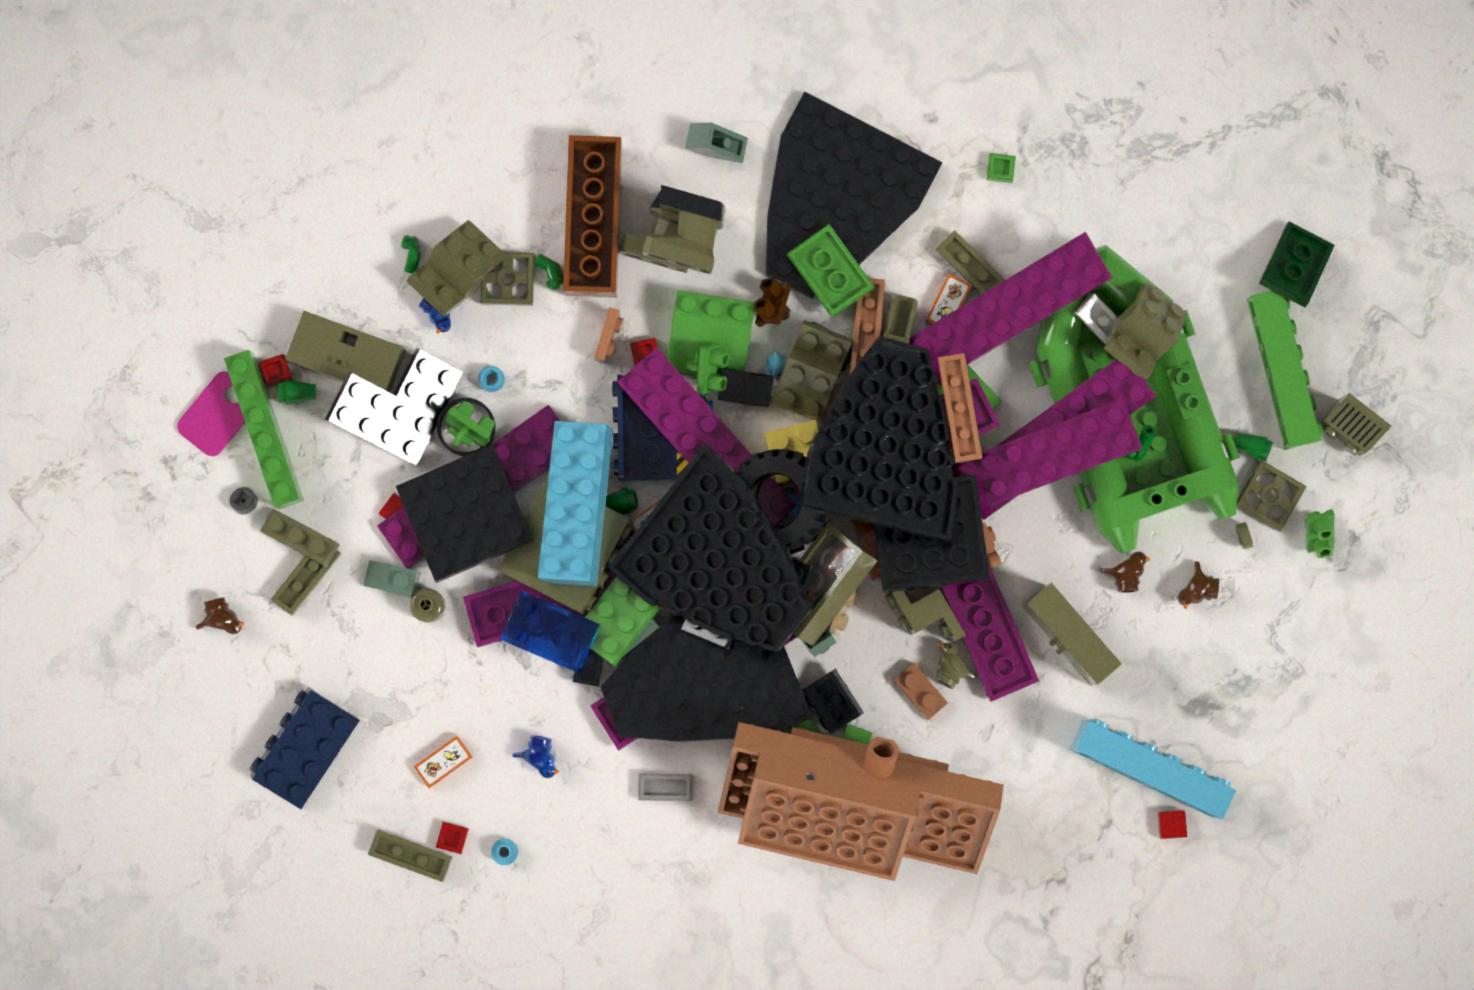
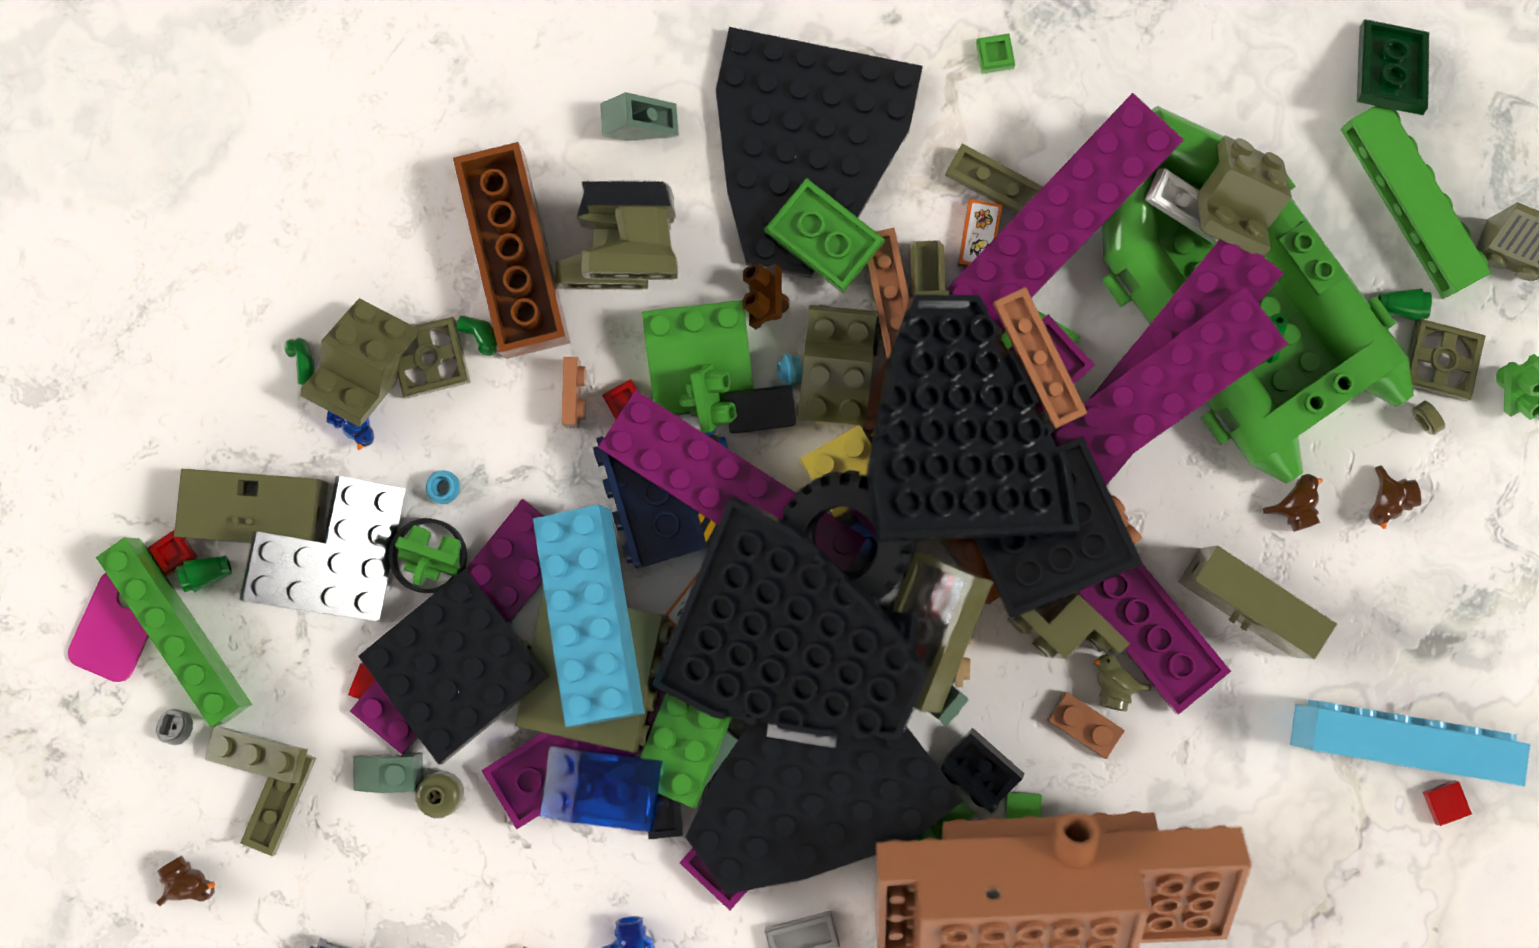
camera: 10 degrees left, 0 degrees up
(623, 501) = (647, 593): green cone -> none

